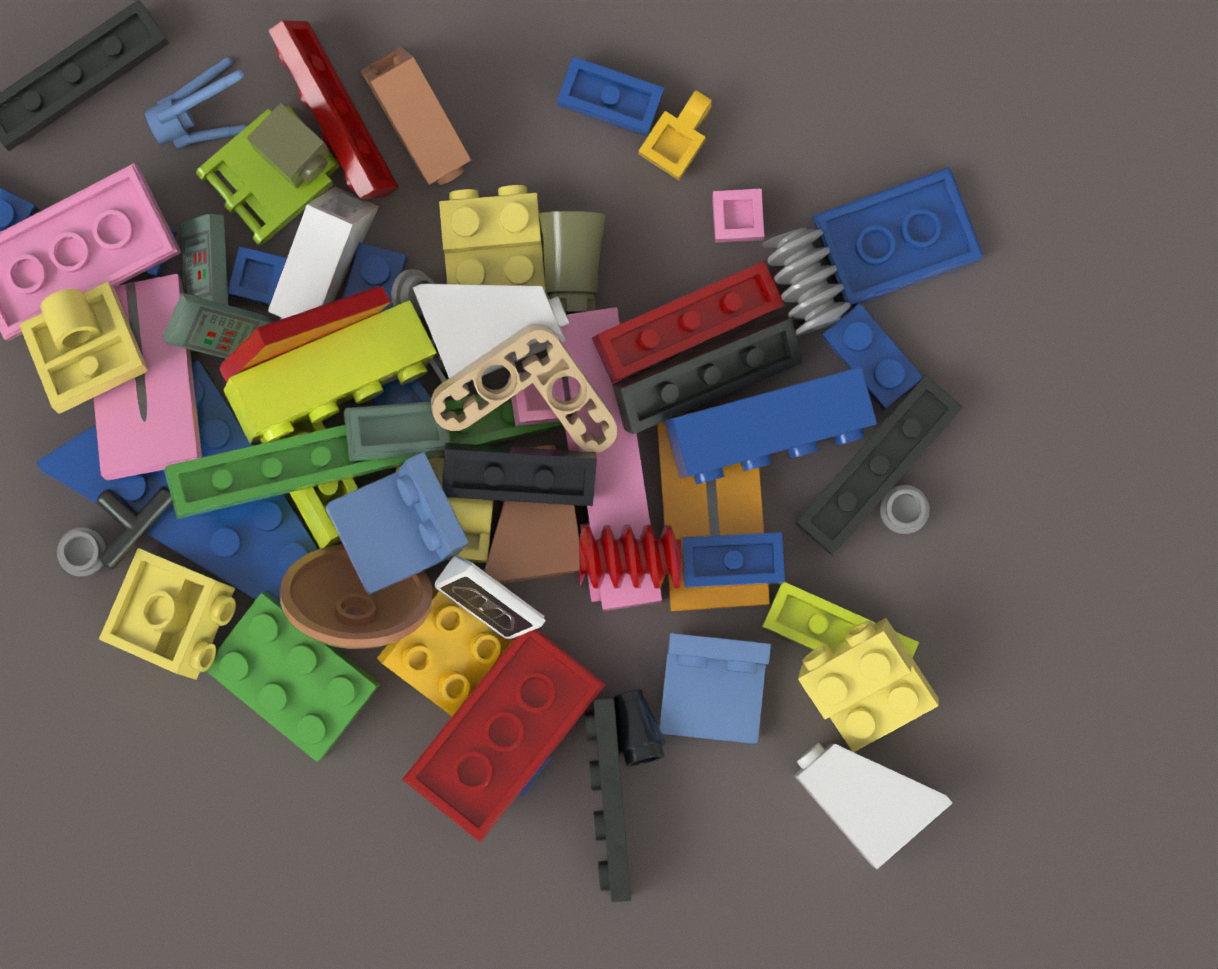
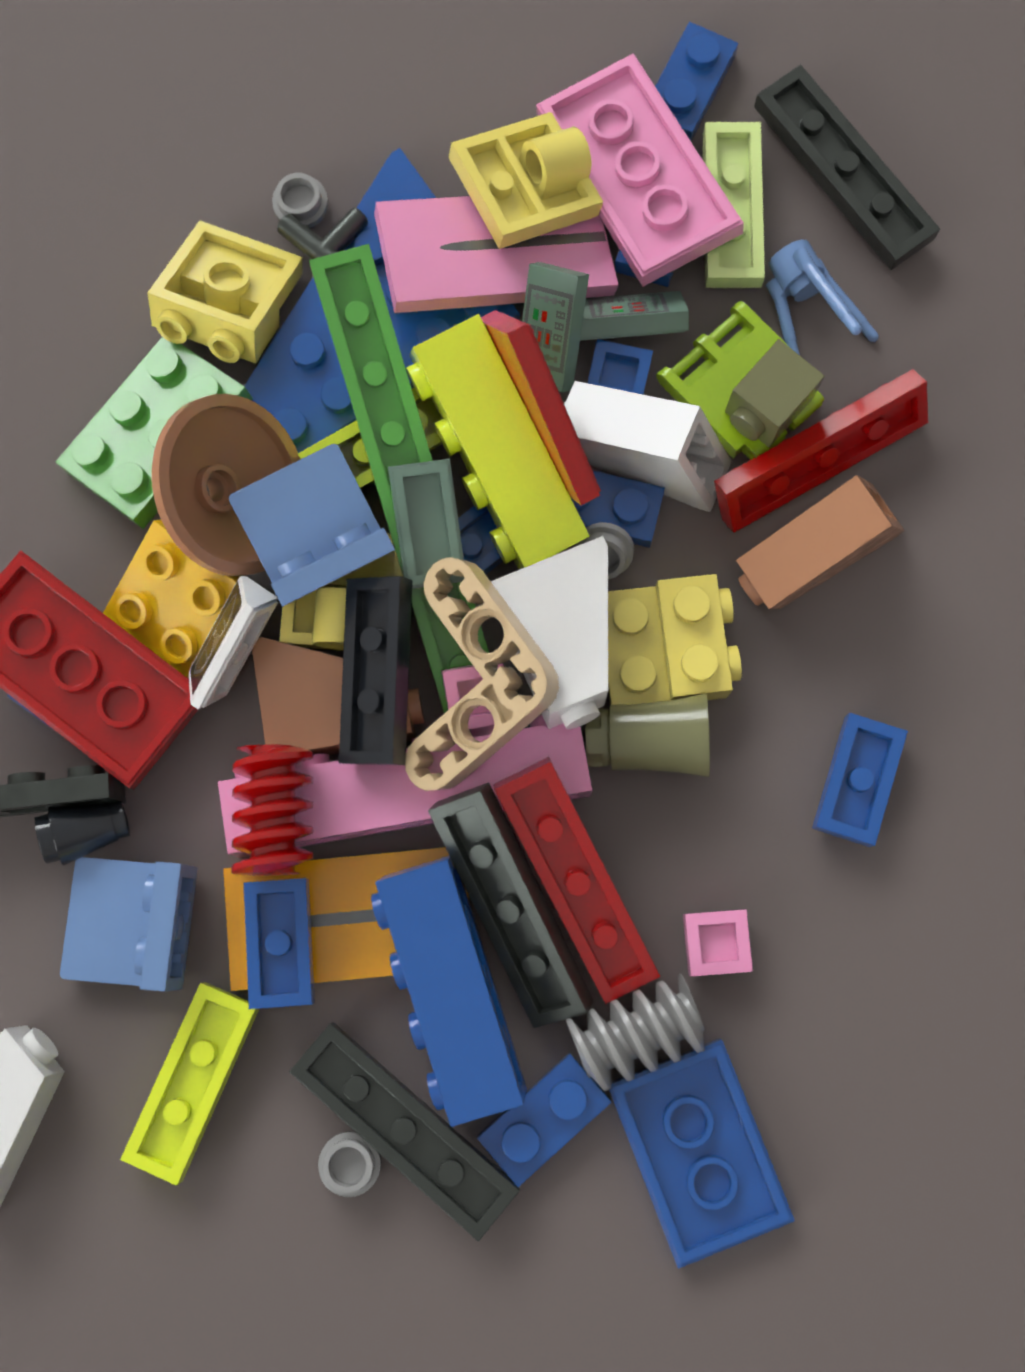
camera: 90 degrees right, 5 degrees down
(69, 169) = (735, 160): none -> yellowish green plate
(675, 140) = (808, 861): yellow plate -> none
(867, 684) = (122, 1118): light yellow plate -> none

